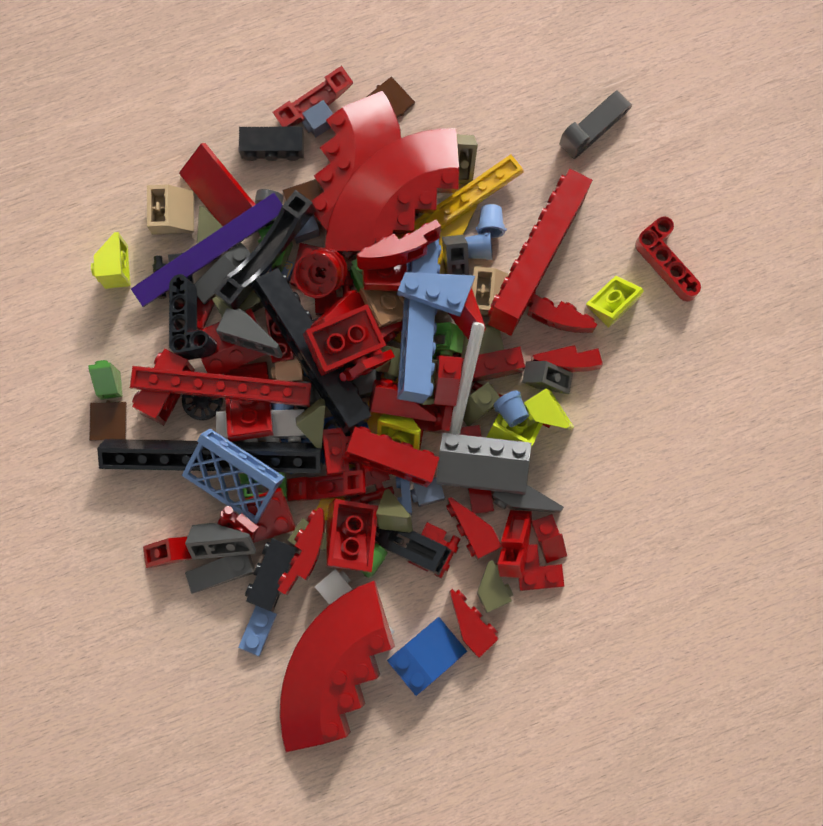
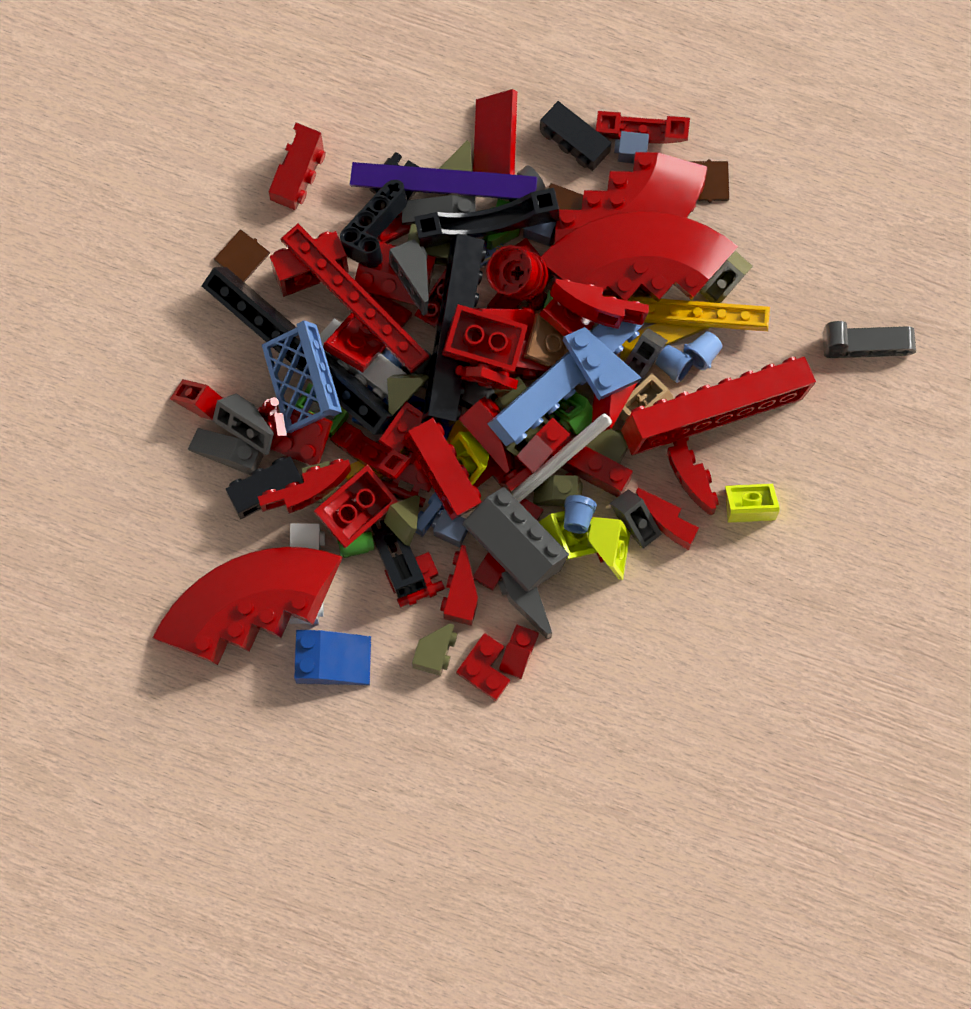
camera: 40 degrees right, 5 degrees down
(93, 324) = (298, 167): none -> red wedge
(106, 380) = (268, 220): bright green slope -> none
(112, 263) = (356, 129): neon yellow slope -> none
(170, 209) = (441, 123): tan slope -> none
(202, 403) = (330, 303): black wheel -> none
(257, 630) = (214, 523): medium blue plate -> none
(288, 371) = (422, 333): light nougat brick -> none
(473, 630) = (388, 668): red slope -> none
(515, 544) = (484, 628): red slope -> none
(671, 261) = (829, 510): red beam -> none

